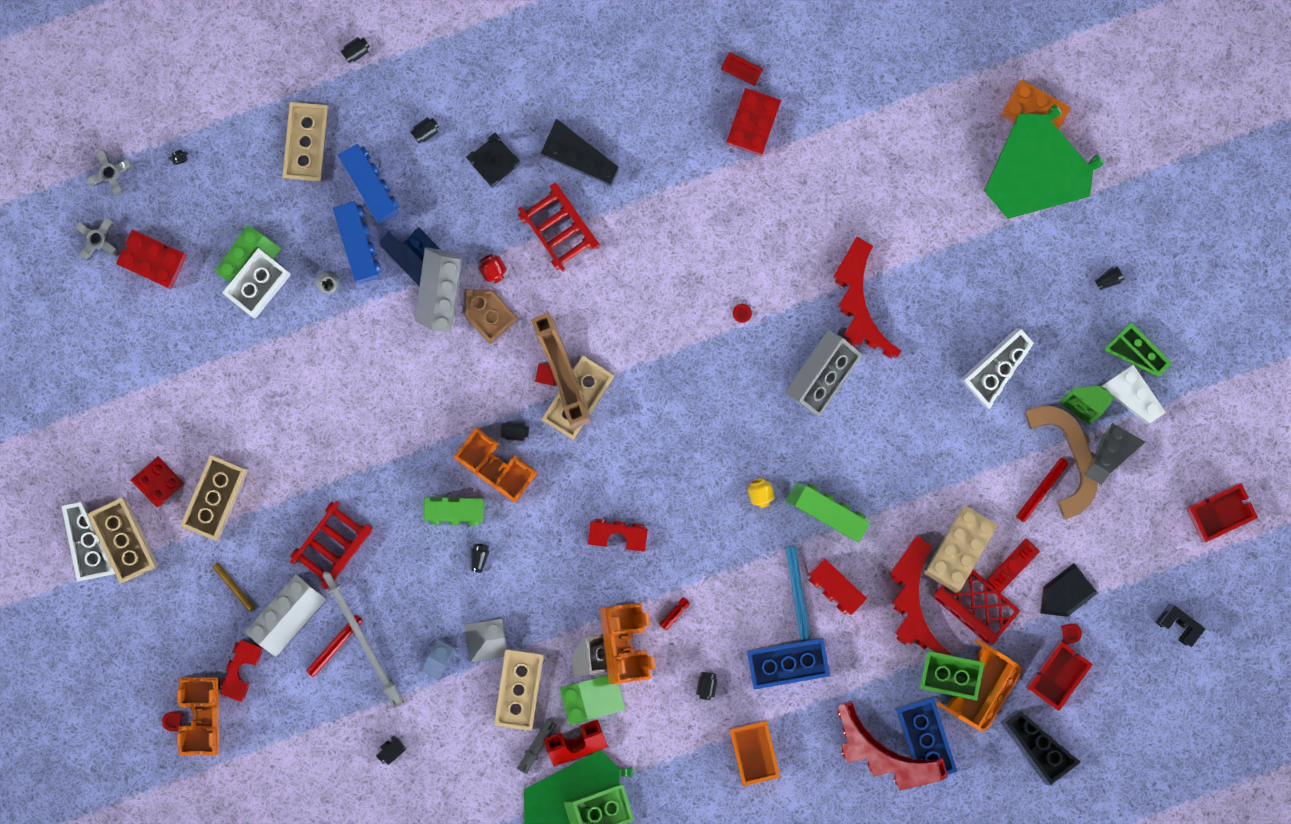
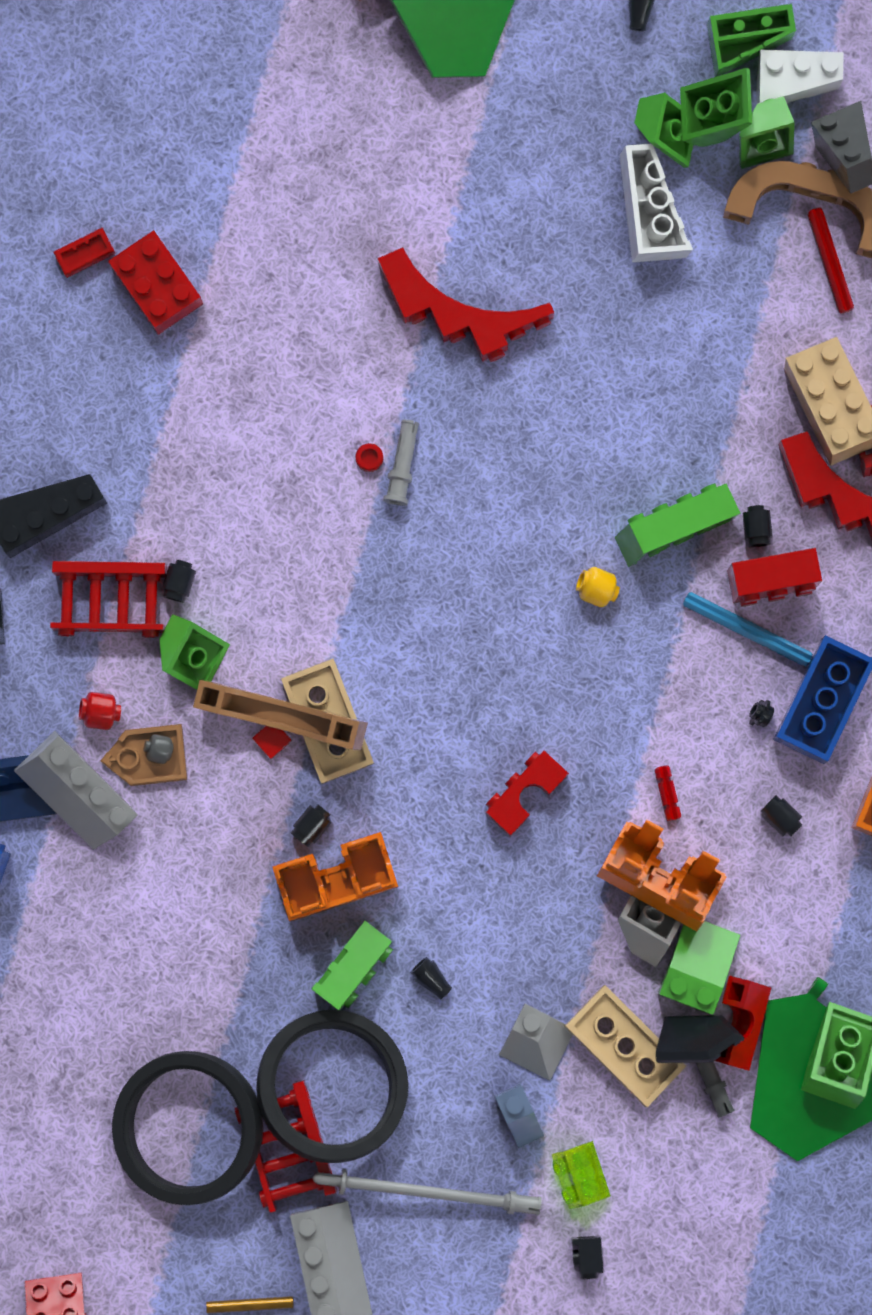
camera: 50 degrees left, 5 degrees down
(214, 498) = (125, 1248): tan brick -> none
(264, 465) = (127, 1148): none -> black tyre
(332, 648) = (412, 1238): red axle -> none
(414, 574) = (378, 1040): none -> black tyre
(431, 715) = (580, 1175): none -> clear neon green bracket
(495, 316) = (158, 749): none -> dark grey piece
(549, 724) = (695, 1039): none -> black tile
(560, 294) = (190, 651): none -> bright green slope
(595, 258) = (178, 581): none -> black brick
(744, 337) = (400, 475): none -> light grey pin
(755, 633) = (761, 713): none -> black plate
(823, 373) = (509, 412): light grey slope -> none
(859, 557) = (757, 526): none -> black brick
(1051, 344) = (661, 124): none -> bright green slope
(1079, 364) = (716, 108): none -> bright green slope

